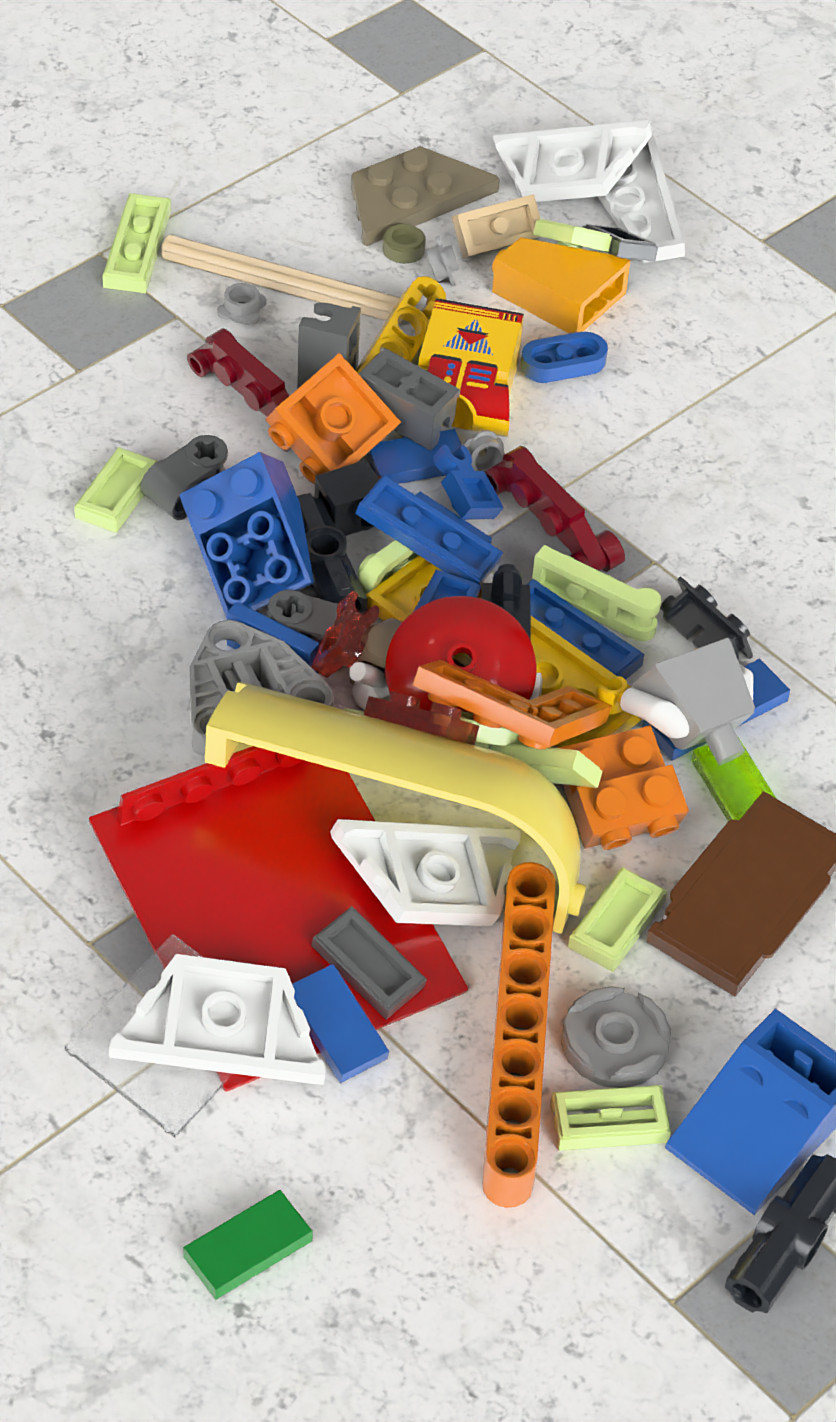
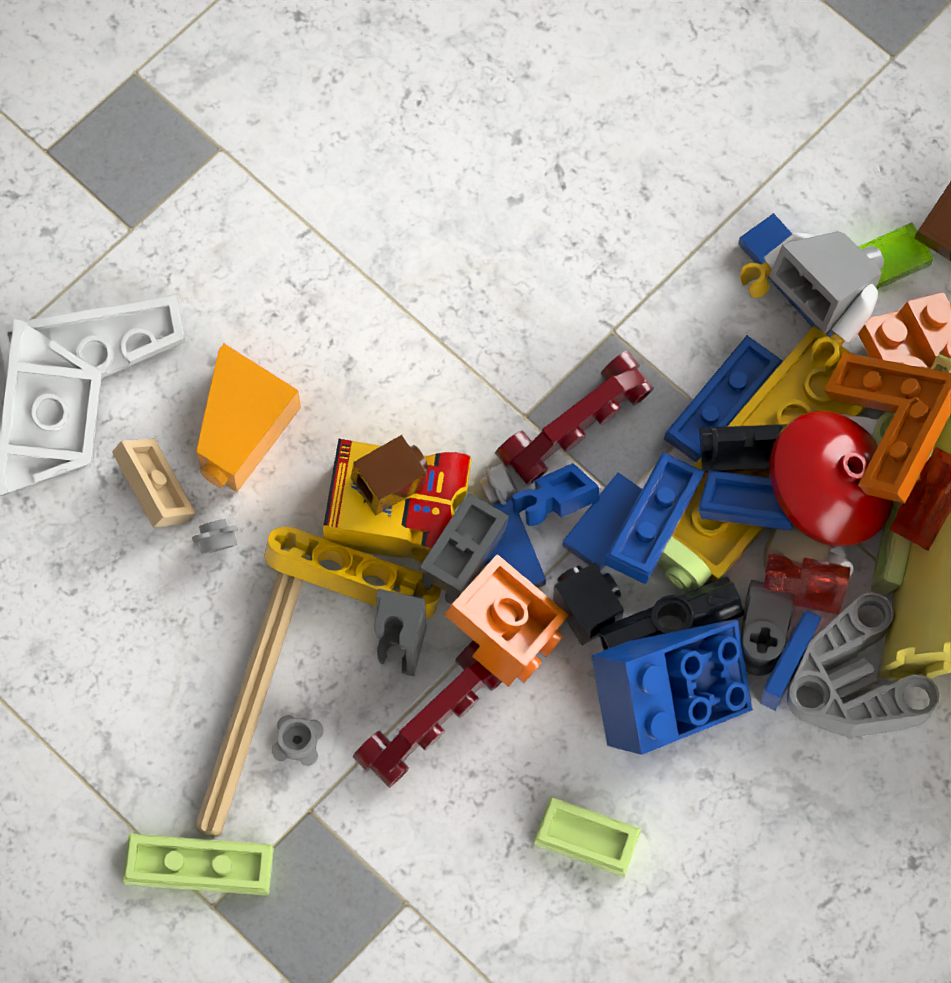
camera: 90 degrees left, 20 degrees up
(183, 470) = (583, 767): dark grey piece -> none
(404, 243) = (175, 582): olive tile -> none
(415, 190) = (86, 579): dark tan wing -> none
(478, 330) = (389, 474): none -> reddish brown brick
(564, 357) = (350, 415): blue plate -> none
(572, 235) = (181, 403): yellowish green plate -> none
(599, 594) = (682, 375): yellowish green plate -> none
(626, 244) = (184, 358): tile -> none
(697, 609) = (689, 291): black hinge -> none

